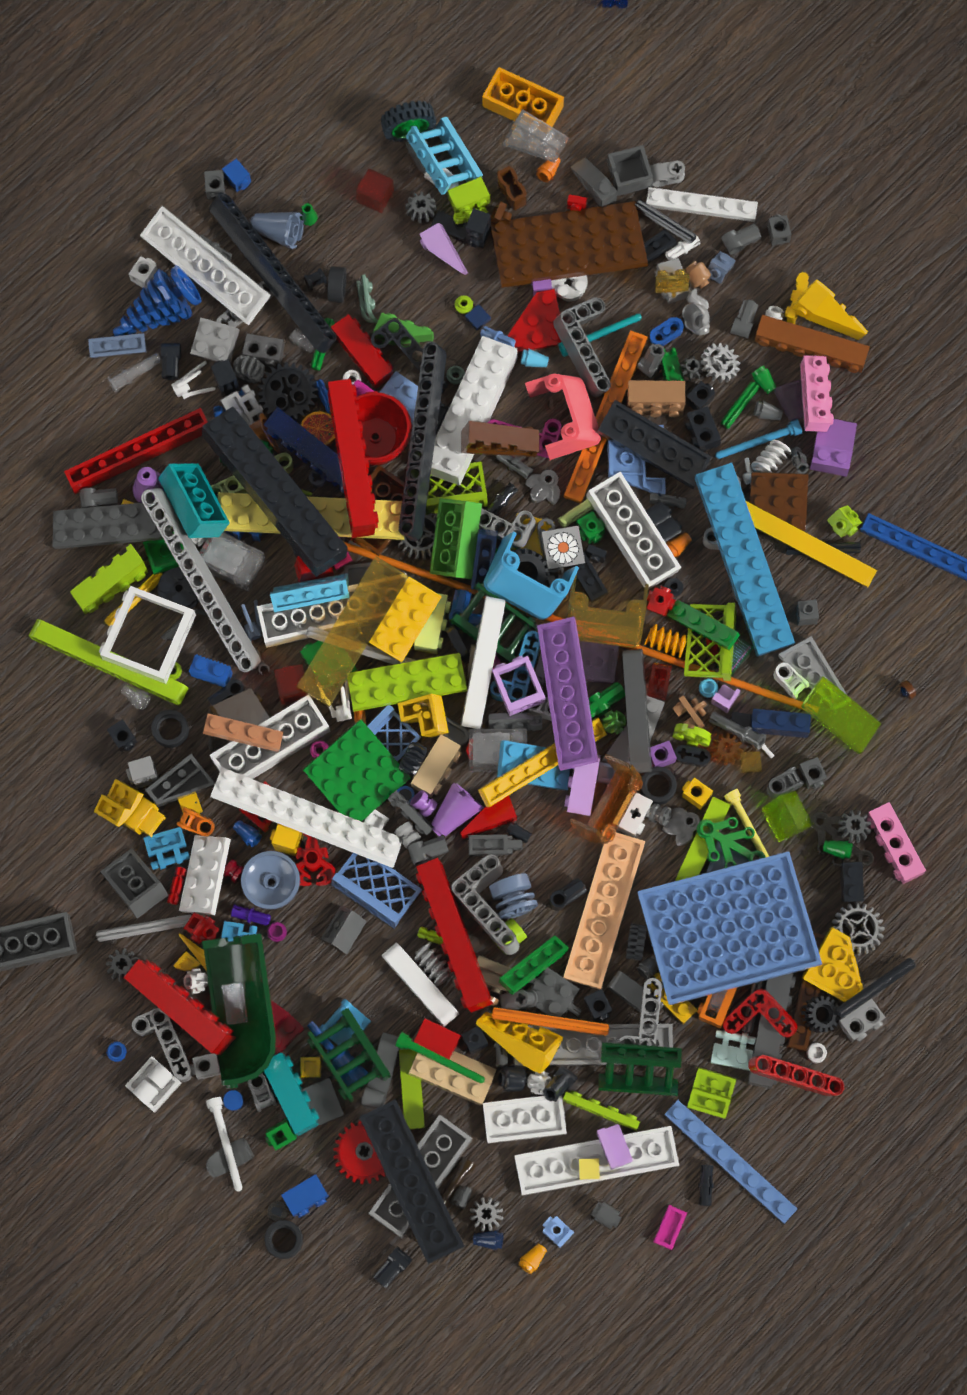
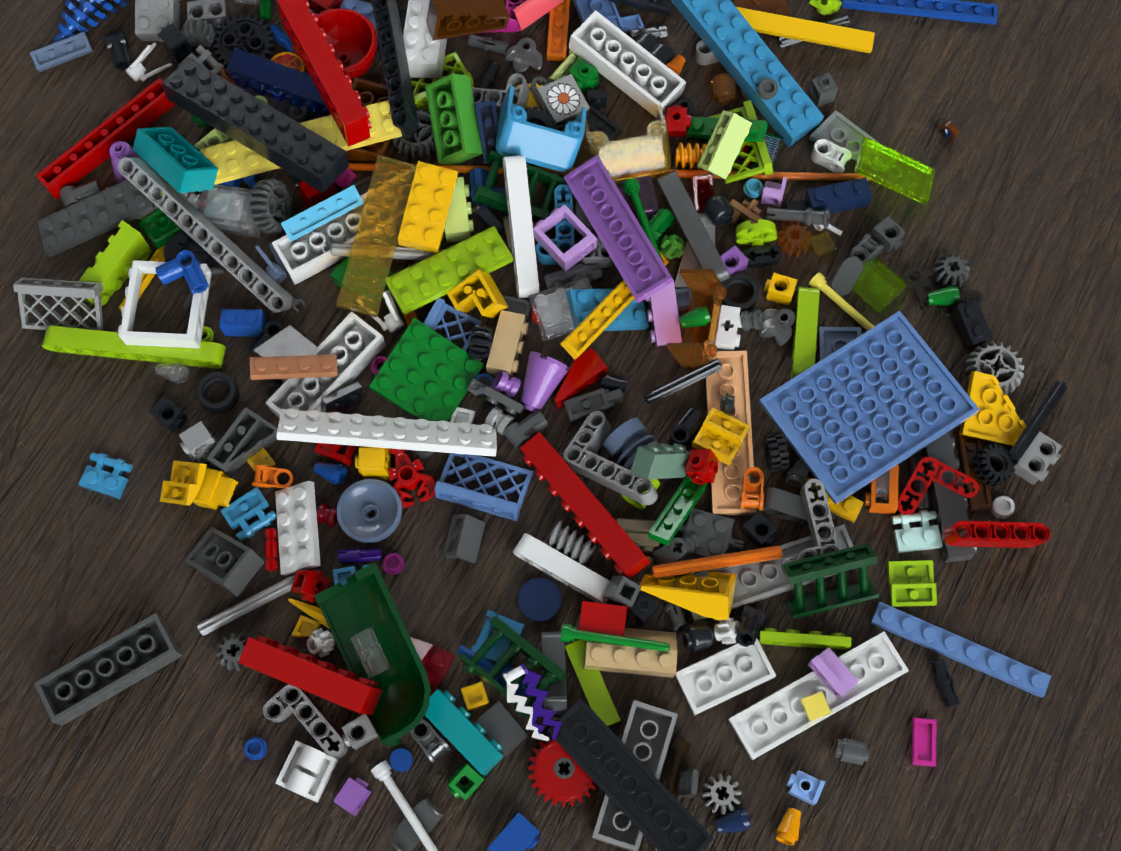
camera: 15 degrees left, 5 degrees down
(49, 777) = (105, 482): none -> dark azure plate
(58, 591) = (58, 288): none -> light grey fence
(127, 376) = (79, 76): clear pin -> none
(180, 617) = (176, 268): none -> blue piece
(185, 1116) = (353, 795): none -> medium lavender brick
(266, 569) = (270, 205): none -> dark grey gear
(276, 771) = (342, 398): none -> black plate
(287, 680) = (326, 310): clear red head -> none
(355, 1097) = (535, 711): none -> piece
(391, 1003) = (539, 600): none -> dark blue tile
(430, 935) = (558, 515): lime axle -> none
(461, 1021) = (622, 591): none -> dark grey brick
(532, 920) = (660, 461): none -> sand green brick
(566, 934) = (702, 466): none -> red brick
(578, 851) = (683, 381): none -> black axle
(594, 912) = (722, 435): none -> yellow slope
(595, 655) = (632, 188): none -> green piece
(602, 970) = (752, 493): none -> orange piece
(608, 798) = (695, 318): none -> green cone
(609, 884) = (727, 403): none -> pearl dark grey plate
(666, 702) = (719, 210): none -> black head
(691, 644) = (724, 144): none -> yellowish green brick
(715, 581) = (723, 88): none -> clear orange head
(726, 841) = (830, 323): green plant -> none
(750, 602) = (767, 89): none -> dark grey tile
(760, 801) = (847, 275): none -> dark grey tile
(887, 815) = (1009, 276): bright pink brick -> none

